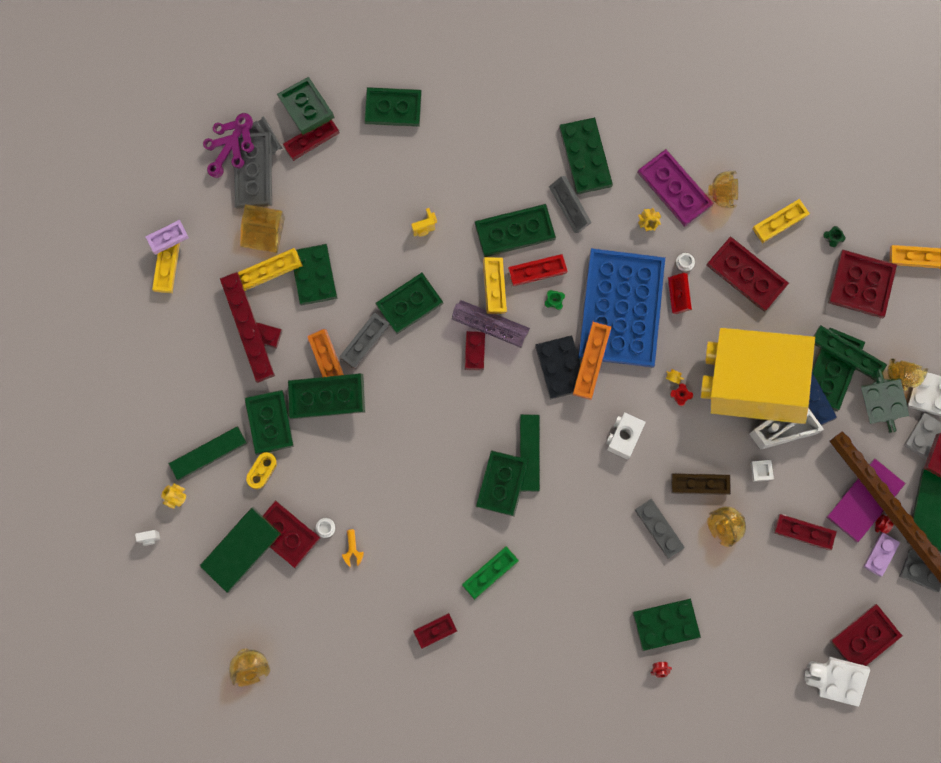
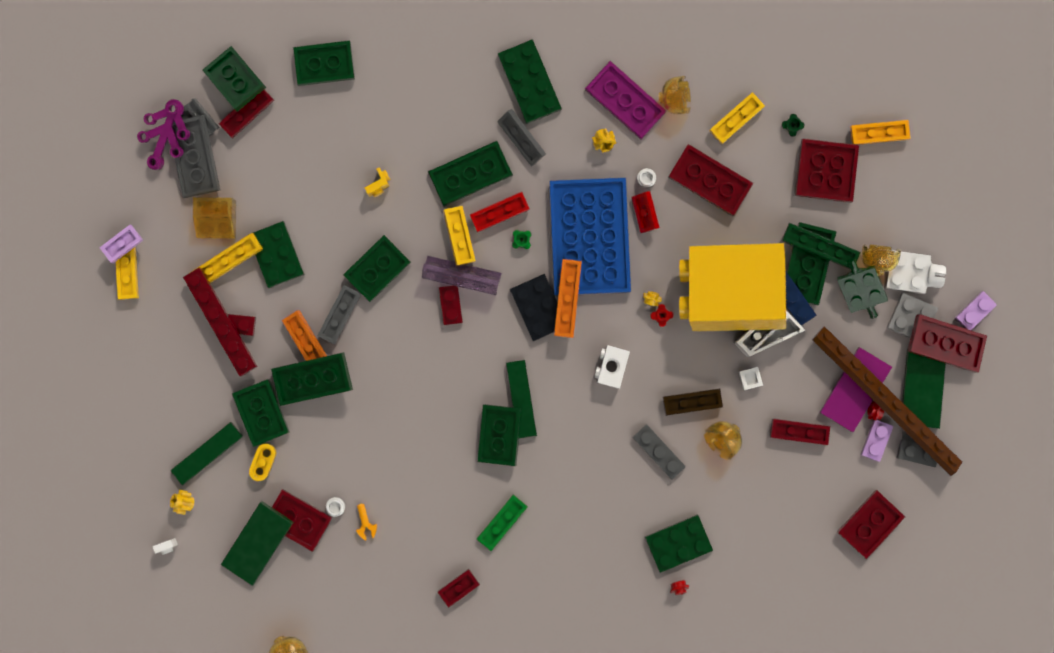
camera: 10 degrees left, 10 degrees up
(838, 680) = (849, 569): white plate -> none

